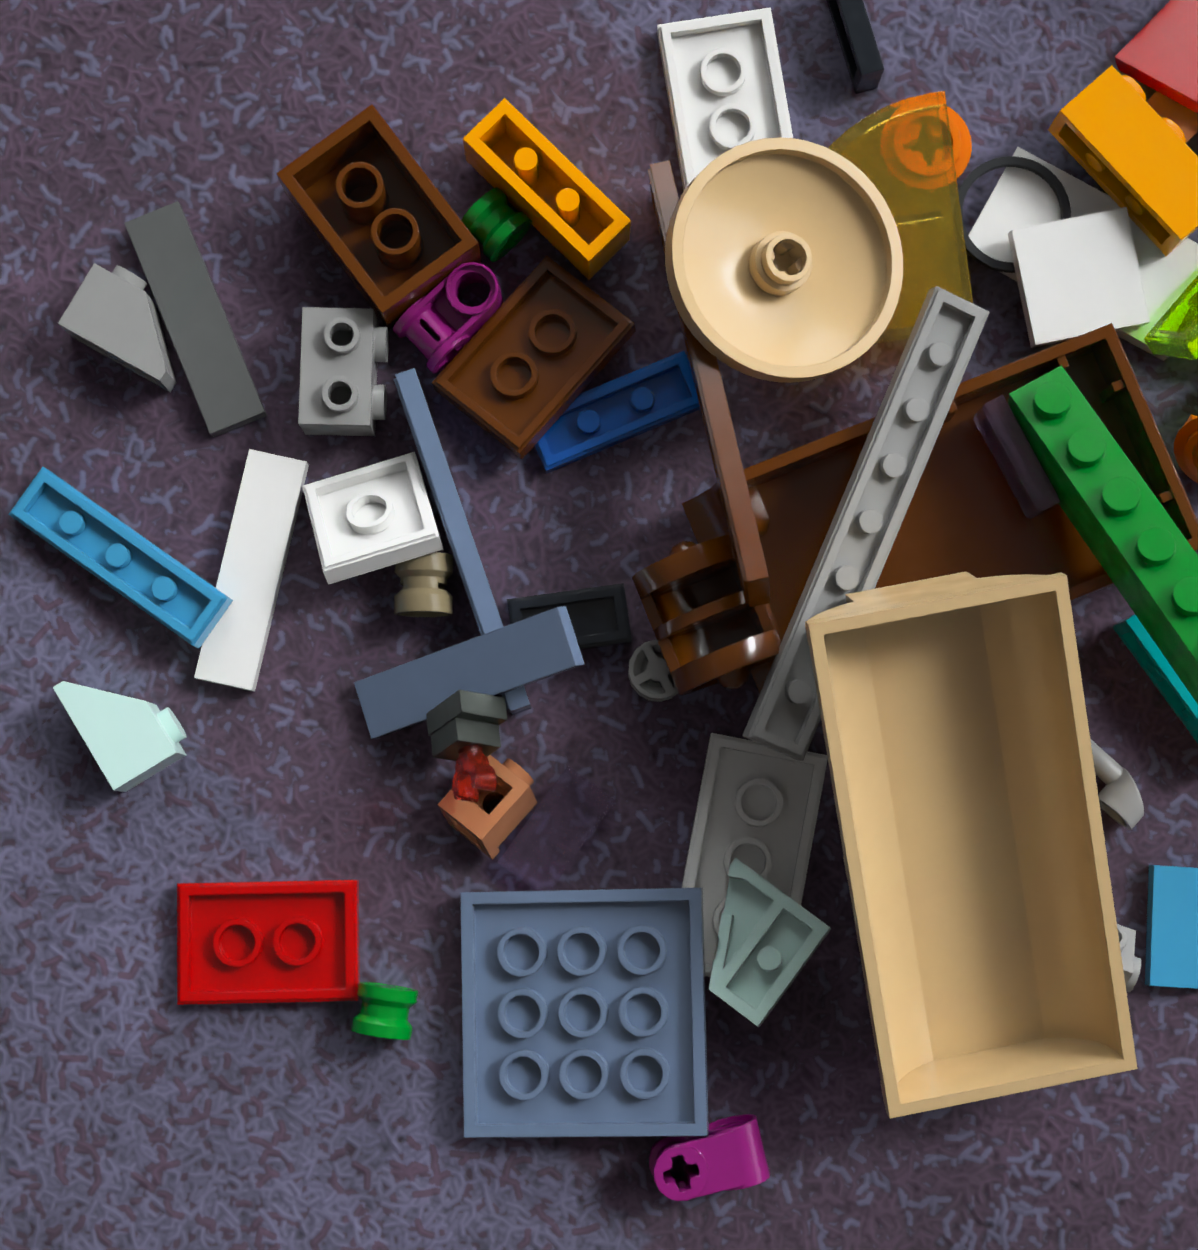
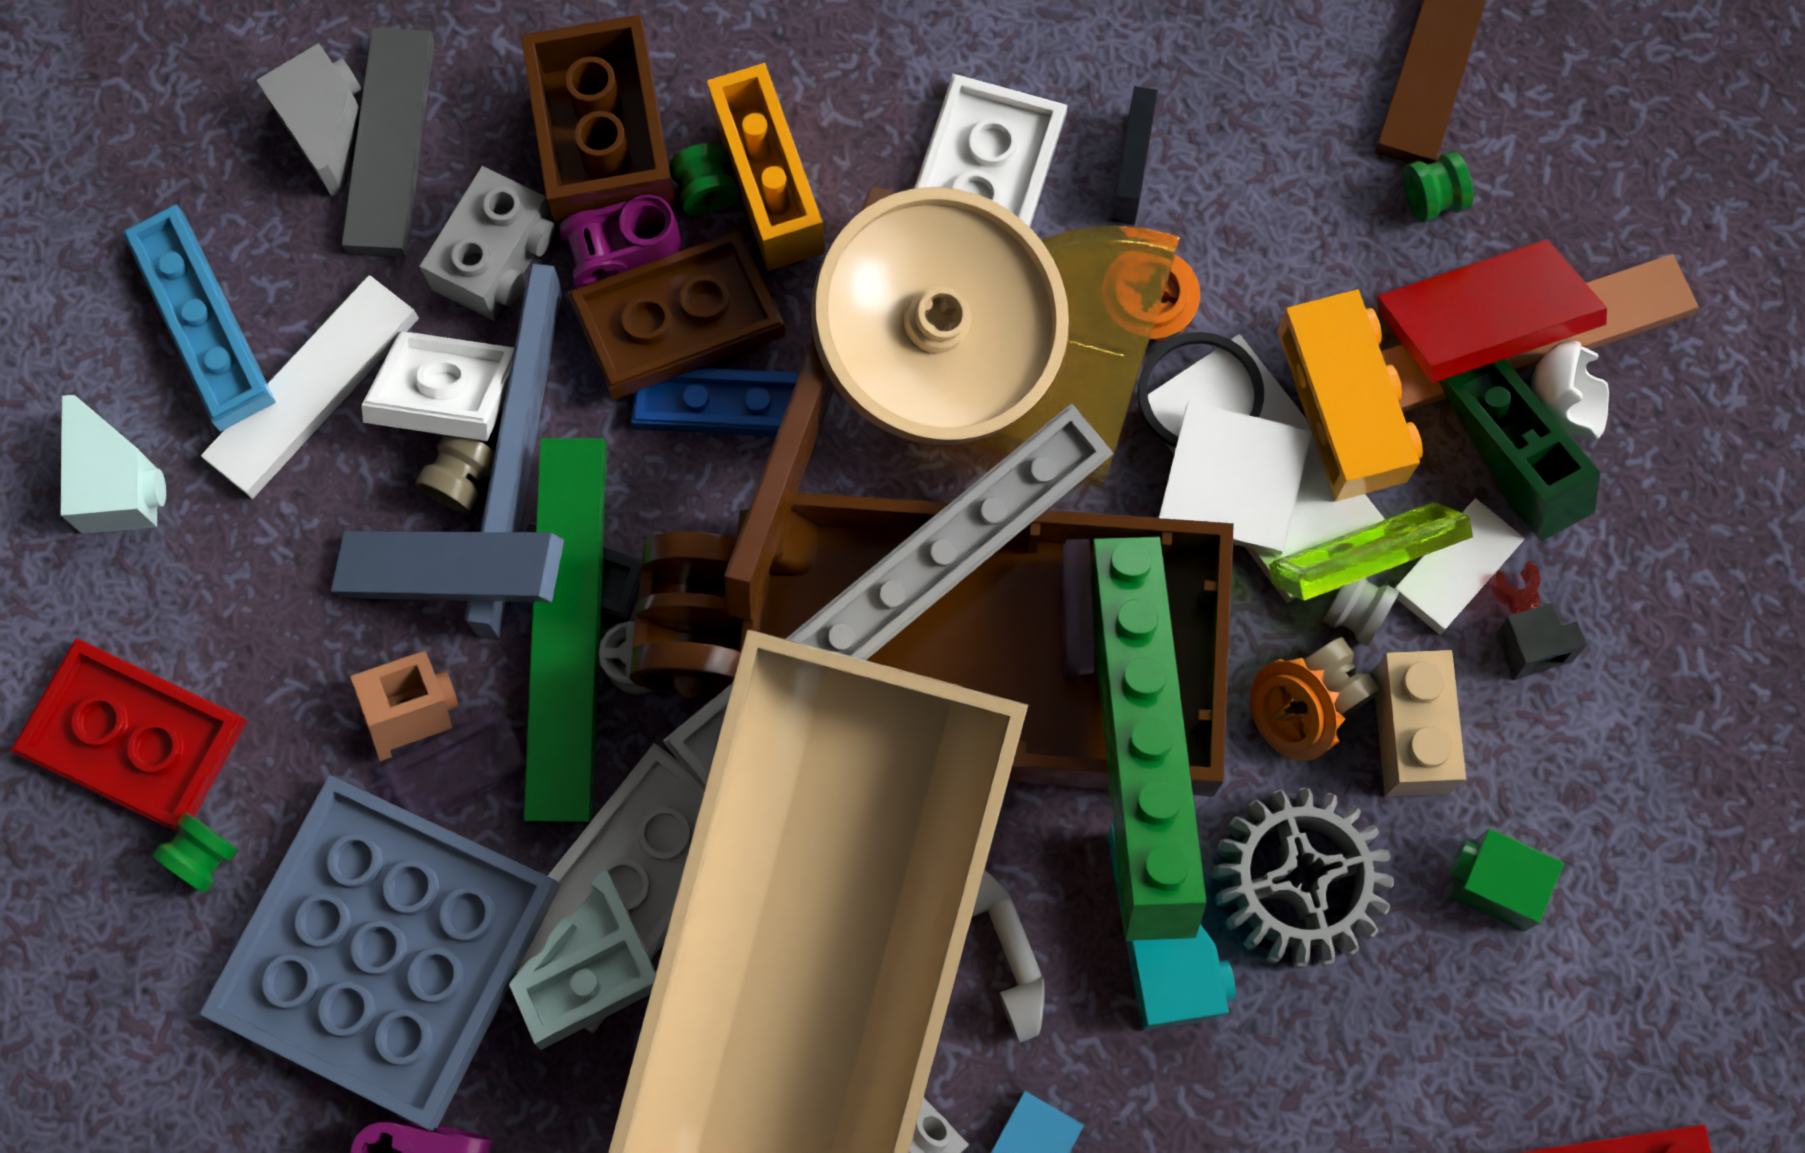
camera: 30 degrees right, 10 degrees down
(467, 731) = (409, 620): pearl dark grey piece -> none
(598, 687) = (567, 635): none -> green tile

